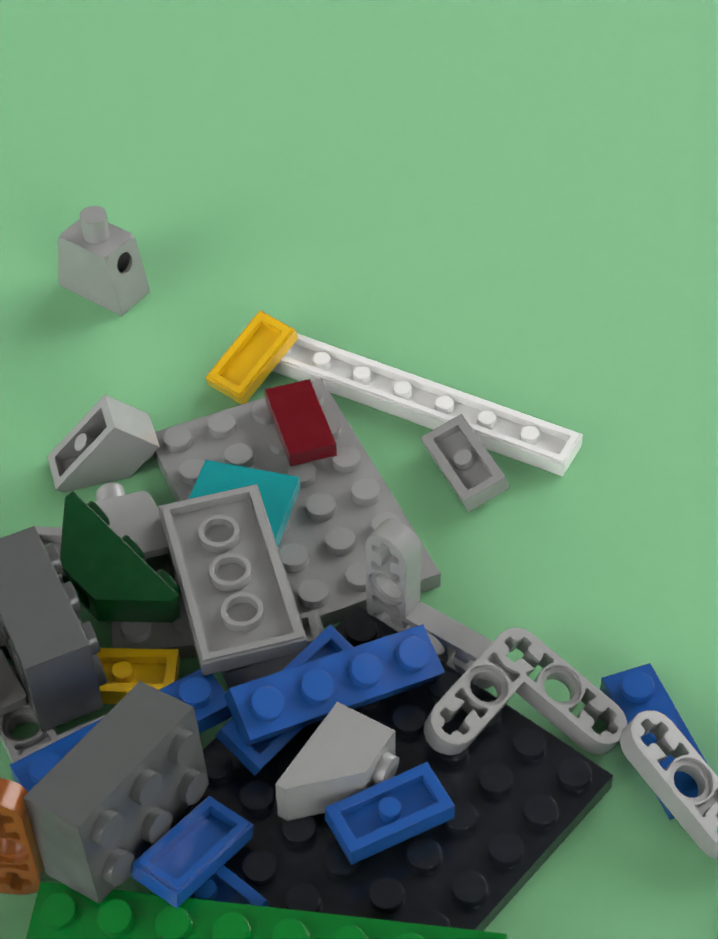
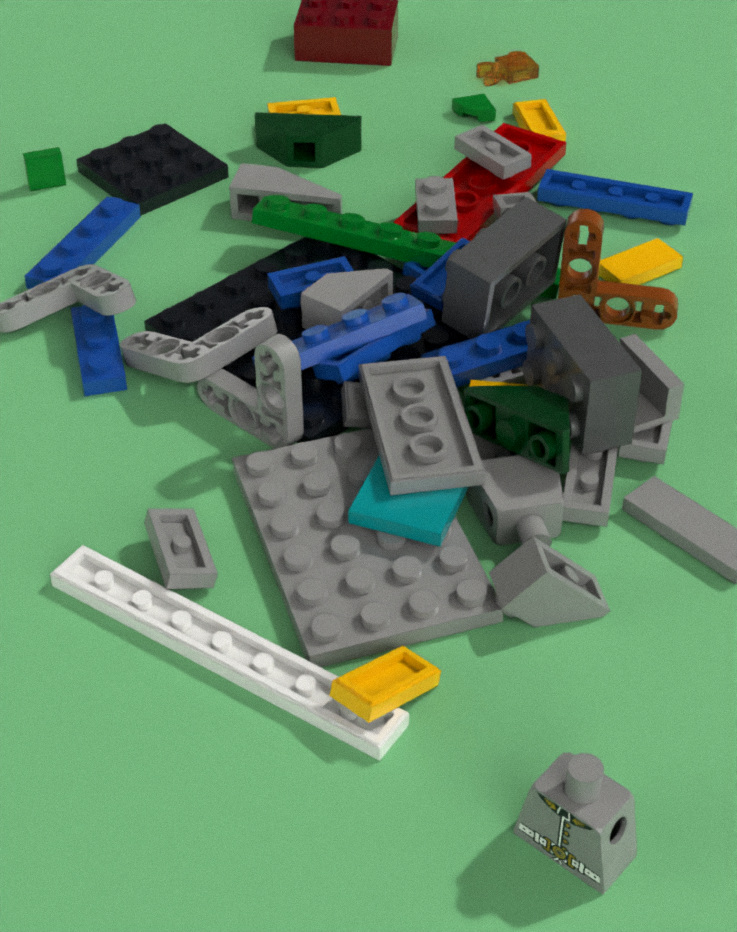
camera: 175 degrees left, 5 degrees down
(300, 422) = (340, 578): dark red tile -> none

